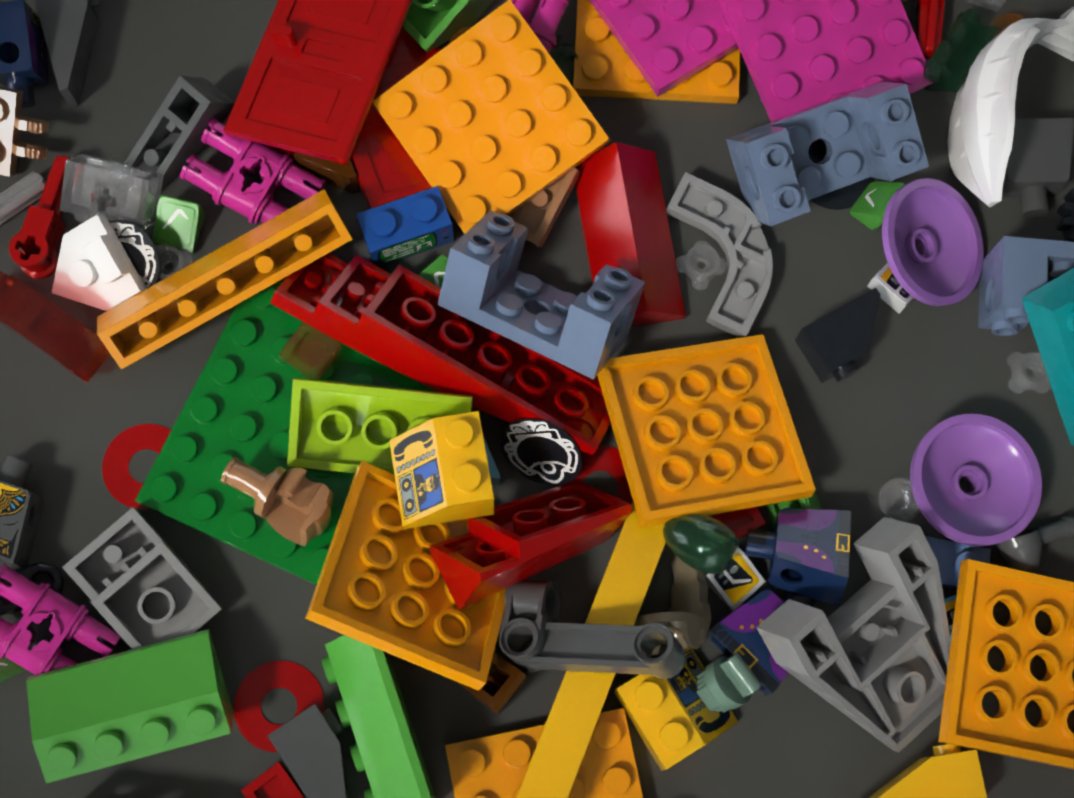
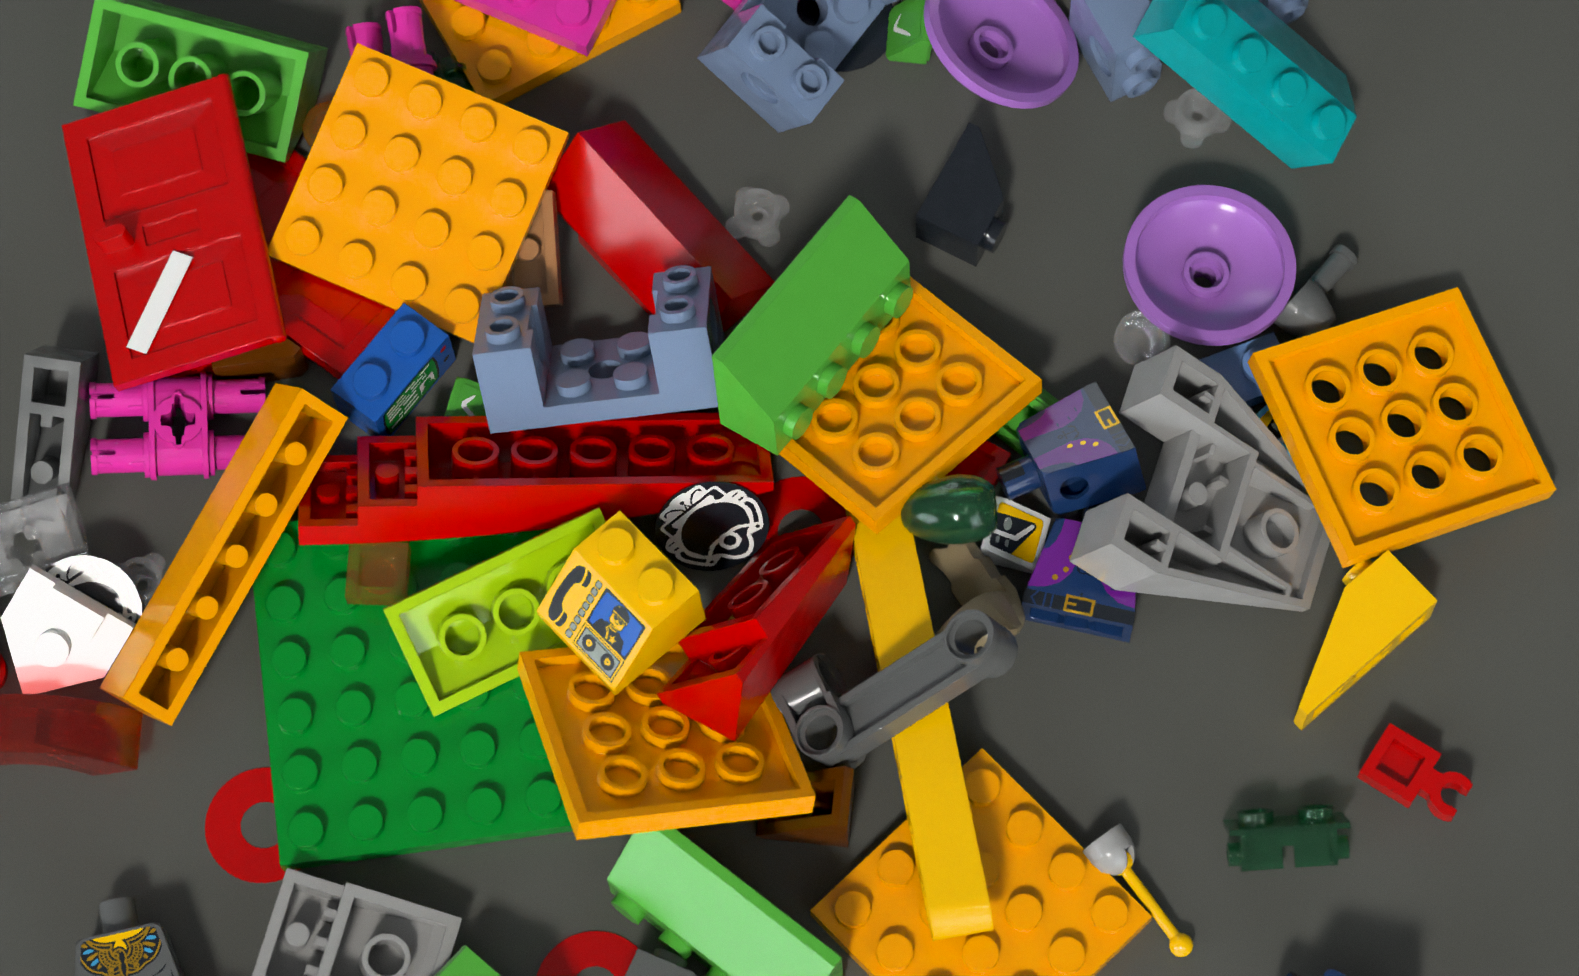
camera: 25 degrees left, 5 degrees down
(178, 223) = (121, 527): bright green slope -> none
(284, 498) = (459, 749): medium nougat piece -> none
(285, 92) = (159, 302): none -> white sticker
(672, 714) = (1037, 716): yellow slope -> none
(683, 363) = (811, 328): none -> bright green slope
(726, 683) = (1077, 648): sand green piece -> none
(741, 240) = (768, 153): light grey plate -> none
(890, 289) = (989, 116): white slope -> none

